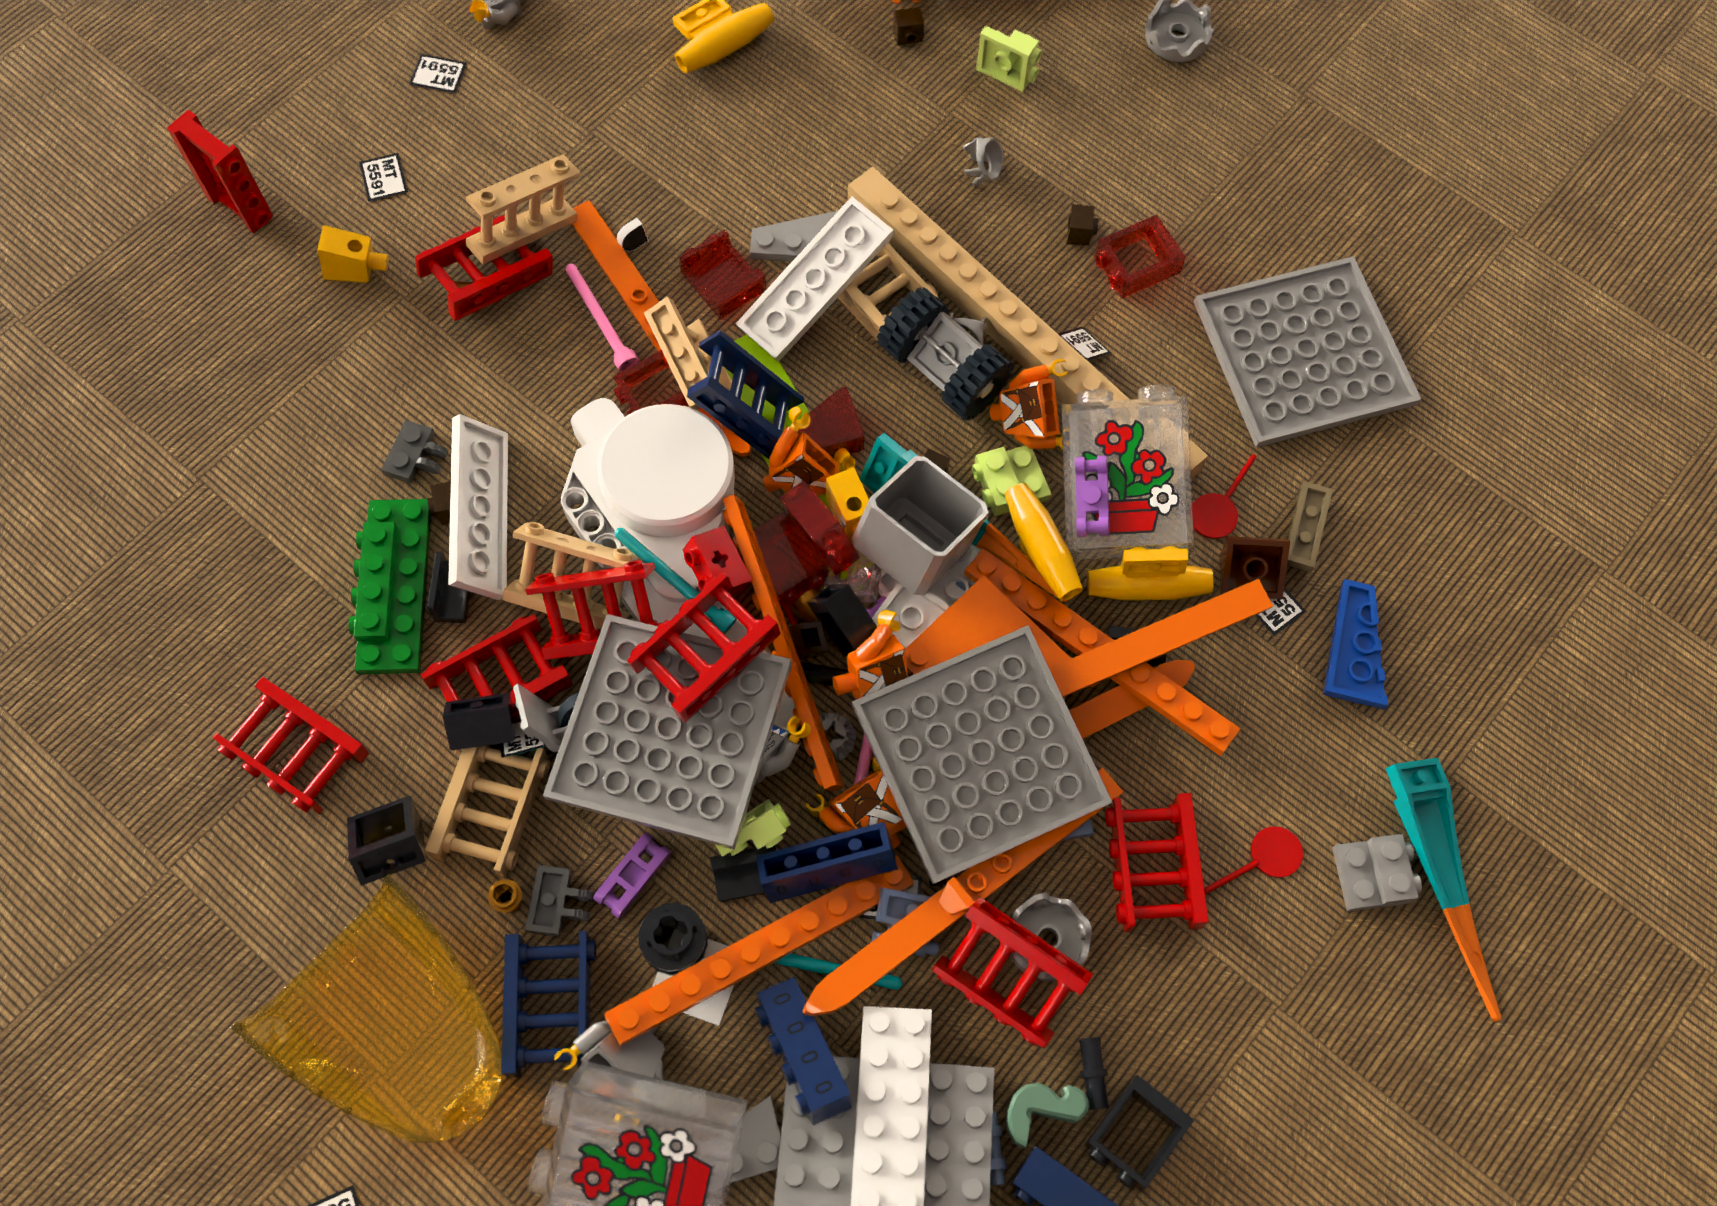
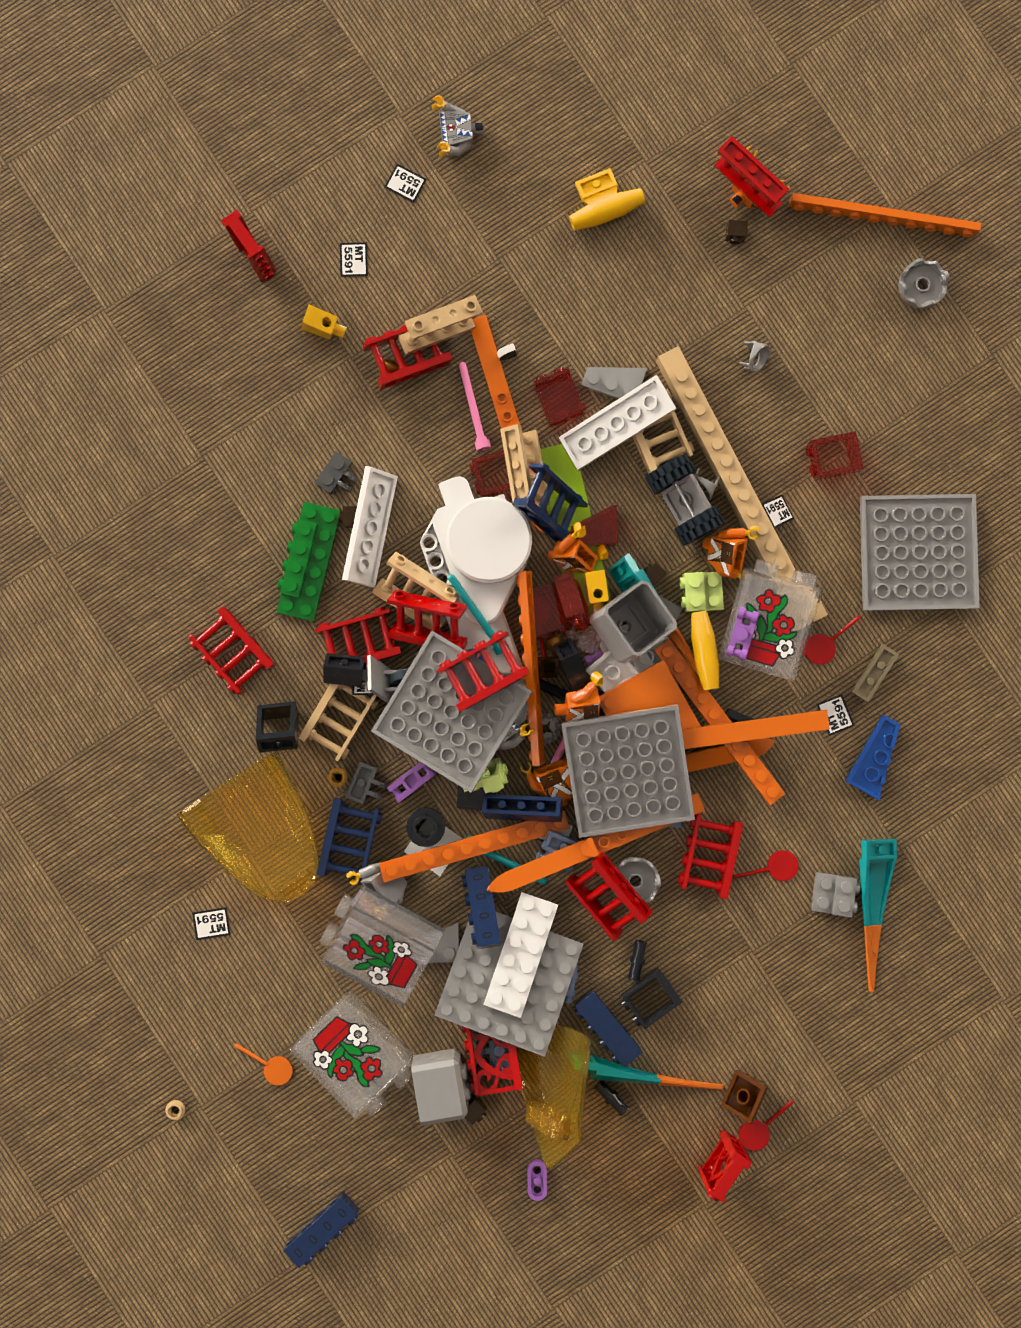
camera: 15 degrees right, 20 degrees up
(446, 601) = (336, 583): black panel -> none
(713, 554) = (506, 603): red brick -> none
(1009, 58) = (800, 284): yellowish green plate -> none
(1044, 1102) = (602, 966): sand green animal -> none
(1081, 225) = (805, 422): dark brown plate -> none
(1151, 576) = (764, 684): yellow plate -> none
(1253, 559) = (830, 693): reddish brown slope -> none

